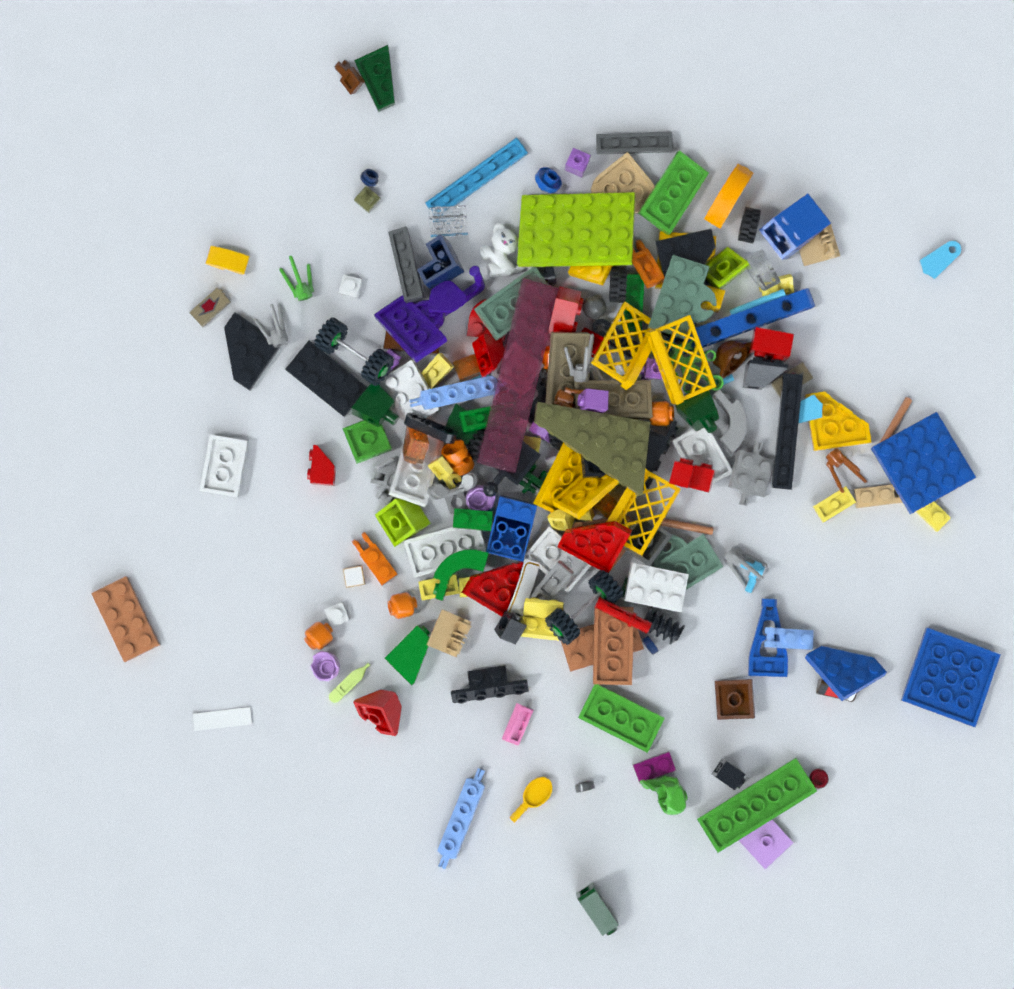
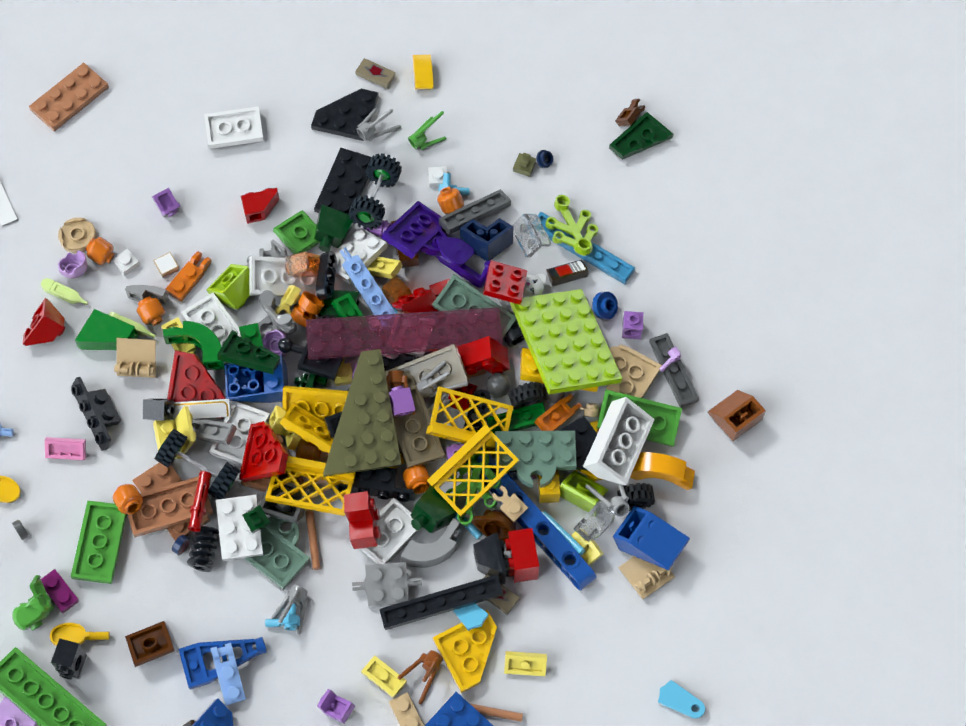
camera: 65 degrees right, 20 degrees down
(288, 556) = (166, 202): none -> medium lavender bracket
(289, 653) = (76, 234): none -> tan tile
(369, 282) = (446, 183): none -> medium azure piece
(380, 609) = (139, 292): none -> light grey slope
(386, 283) = (450, 200): none -> orange head
(416, 621) = (141, 330): none -> yellowish green piece
(456, 179) = (581, 245): none -> lime plant
(490, 529) = (245, 354): none -> dark green wing
(497, 202) = (567, 272): none -> slope
(501, 263) = (505, 282): none -> red plate
(599, 680) = (127, 499): none -> orange head
(624, 136) = (674, 355): none -> lavender hand
(648, 232) = (591, 410): none -> tan plate
(659, 569) = (256, 519): none -> dark green tile
(698, 103) = (737, 414): none -> dark orange slope
(699, 219) = (619, 441): none -> white slope
(702, 765) = (75, 633): none -> yellow piece
(722, 337) = (512, 506): none -> tan plate
(756, 244) = (617, 503): none -> light grey plant
(848, 554) = (335, 706): none -> medium lavender bracket
(865, 378) = (525, 663): none -> light yellow plate

